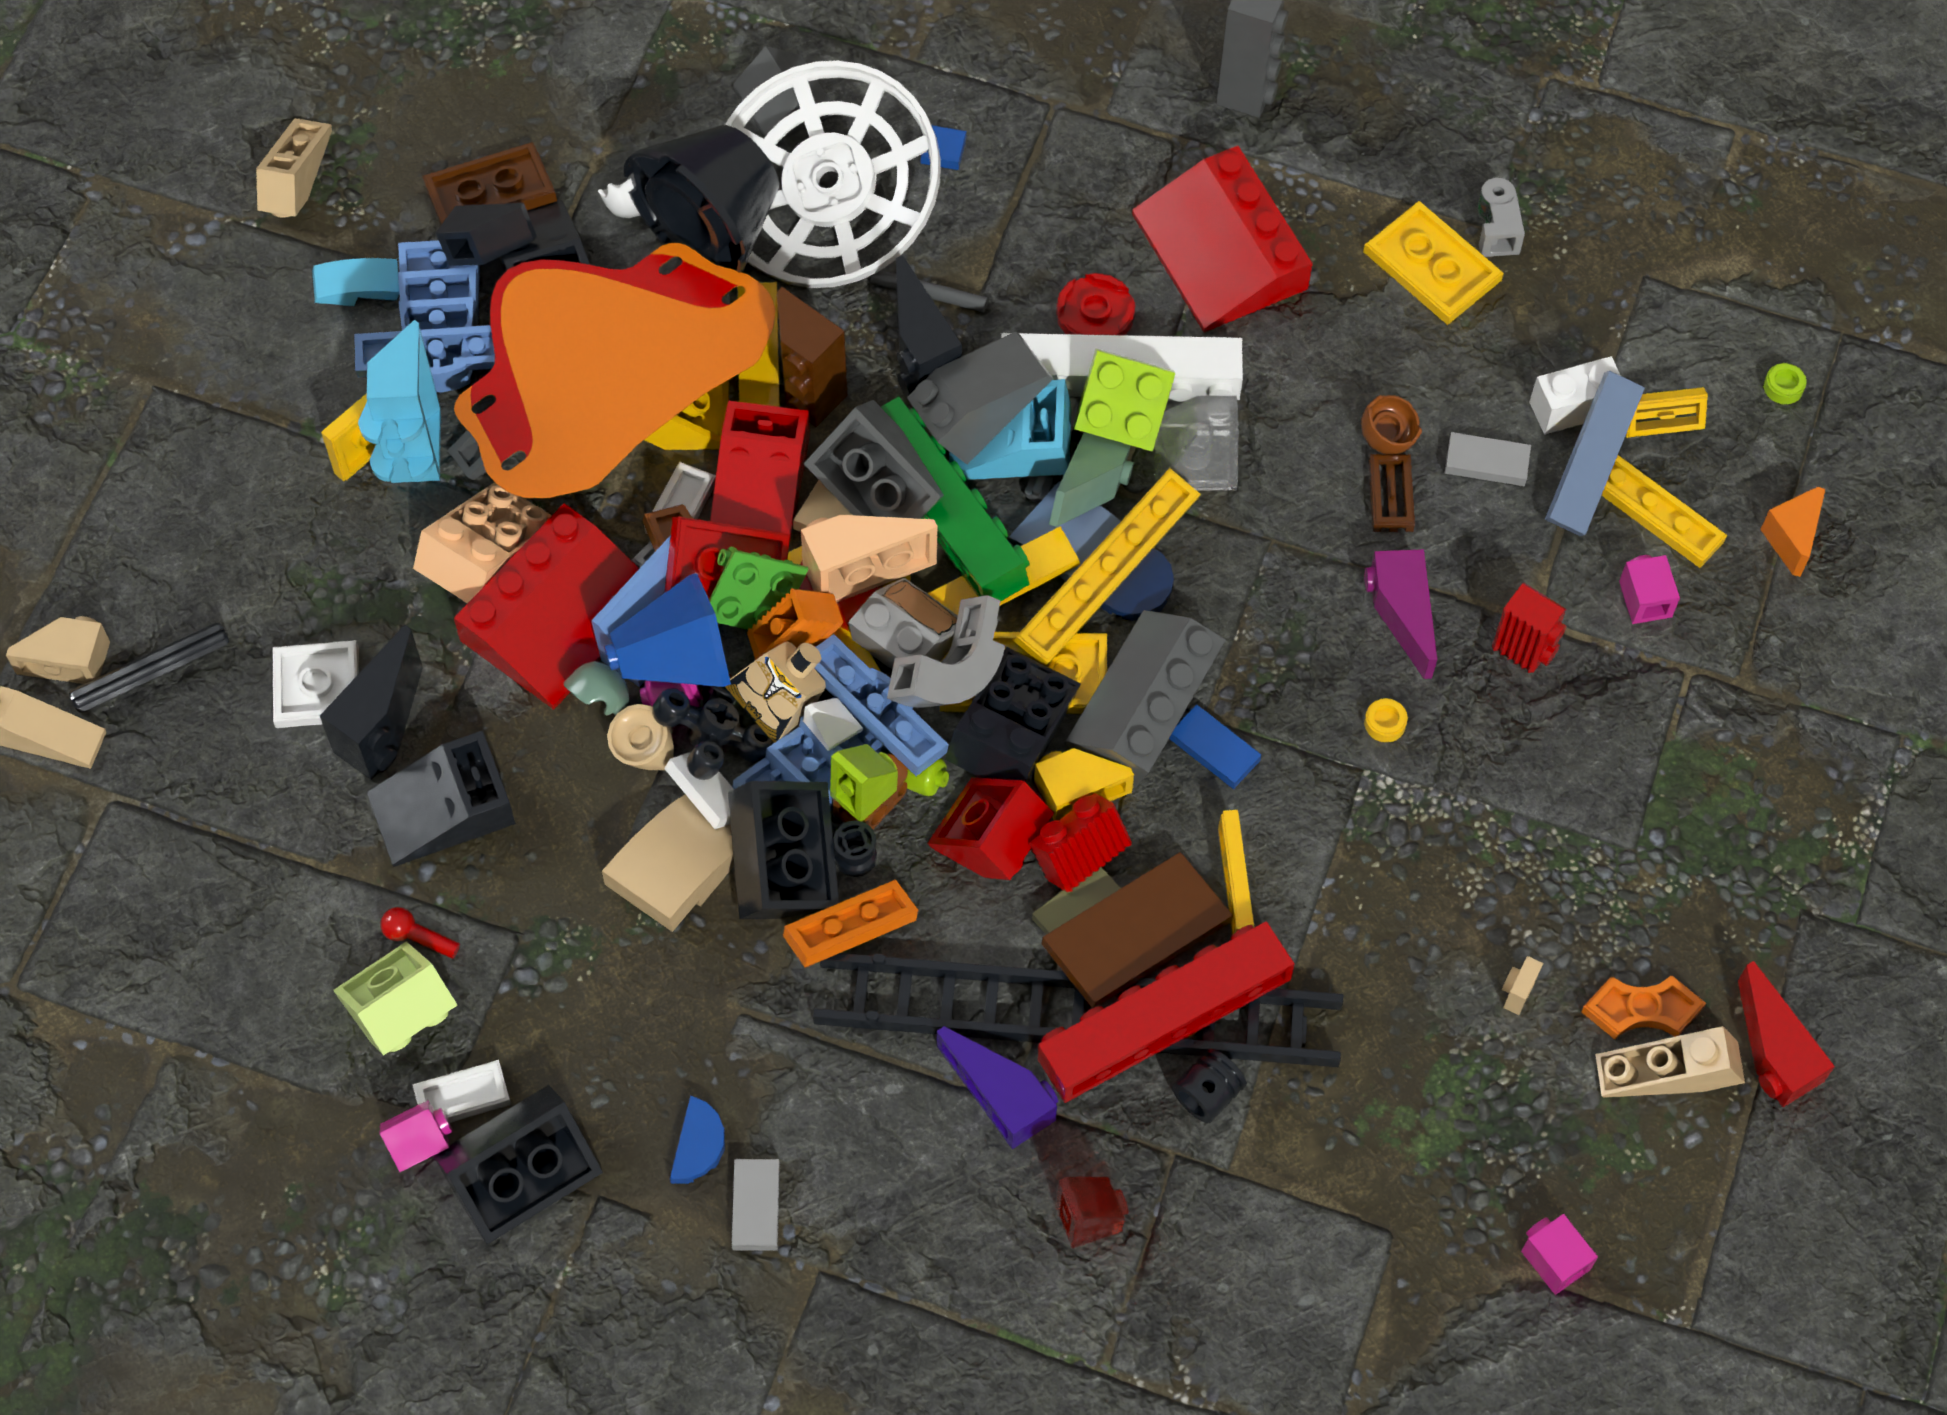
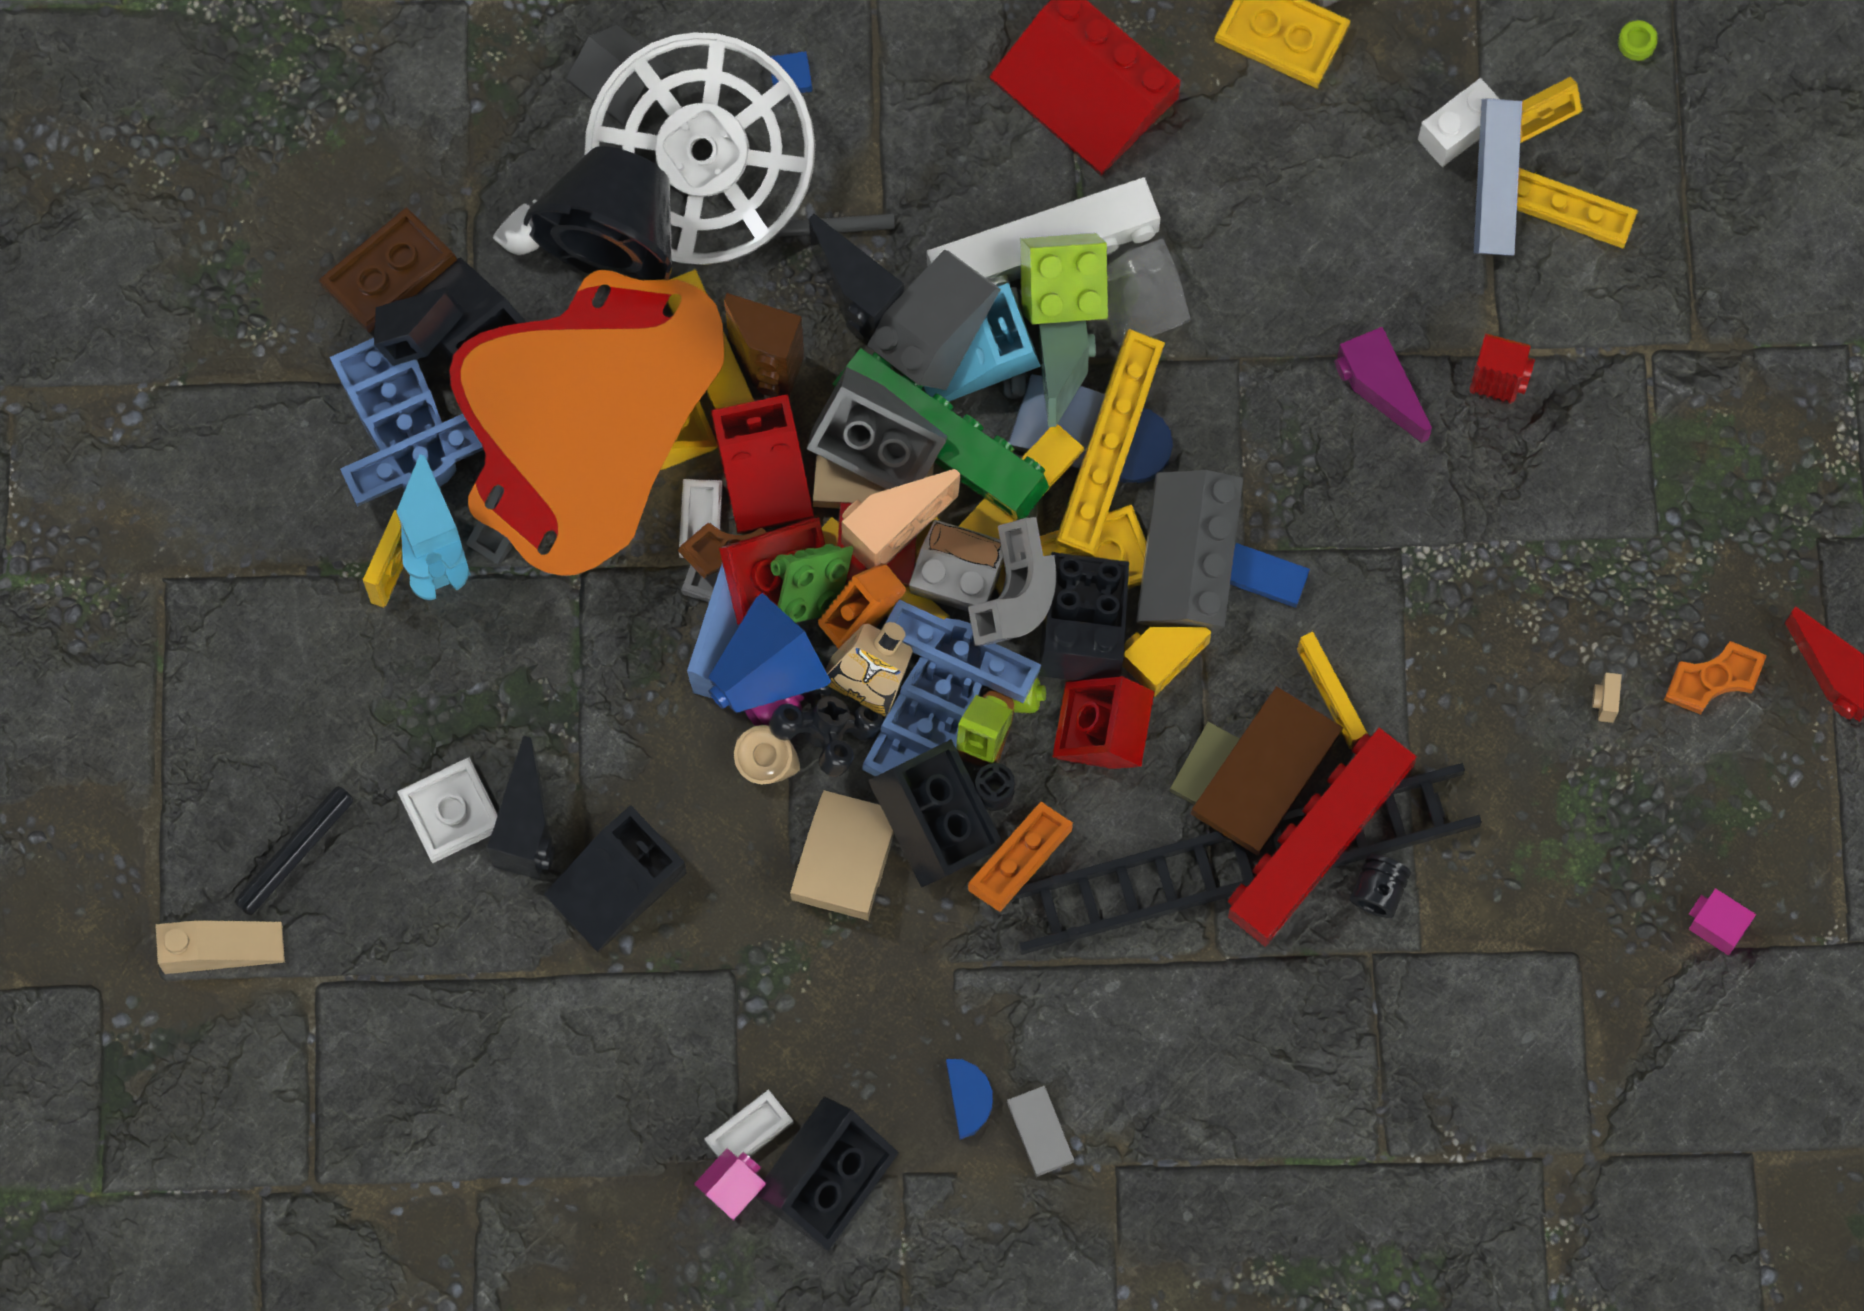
camera: 20 degrees left, 10 degrees up
(62, 651) = (212, 865): tan slope -> none
(291, 168) = (194, 314): tan slope -> none
(348, 279) = (304, 407): medium azure slope -> none
(396, 998) = (655, 1068): yellowish green slope -> none
(399, 924) = (629, 1003): red bar -> none
(476, 540) = (543, 625): light nougat slope -> none
(542, 604) = (633, 661): red slope -> none
(596, 683) = (707, 722): sand green hair -> none
(707, 795) = (850, 787): white tile -> none
(831, 722) = (931, 683): white slope -> none
(1003, 1089) = (1209, 954): dark purple slope -> none
(1080, 842) = (1188, 710): red brick -> none
(1090, 1209) = (1324, 1031): clear red slope -> none
(1095, 306) = (995, 189): red tile -> none
(1385, 720) = (1404, 495): yellow tile -> none
(1390, 424) = (1306, 212): dark orange hair -> none
(1392, 521) = (1340, 304): reddish brown tile -> none
(1487, 459) = (1402, 211): light grey tile -> none
(1649, 589) = (1588, 288): dark pink brick -> none
(1672, 1065) = (1756, 722): tan slope -> none
(1793, 527) = (1694, 184): orange slope -> none

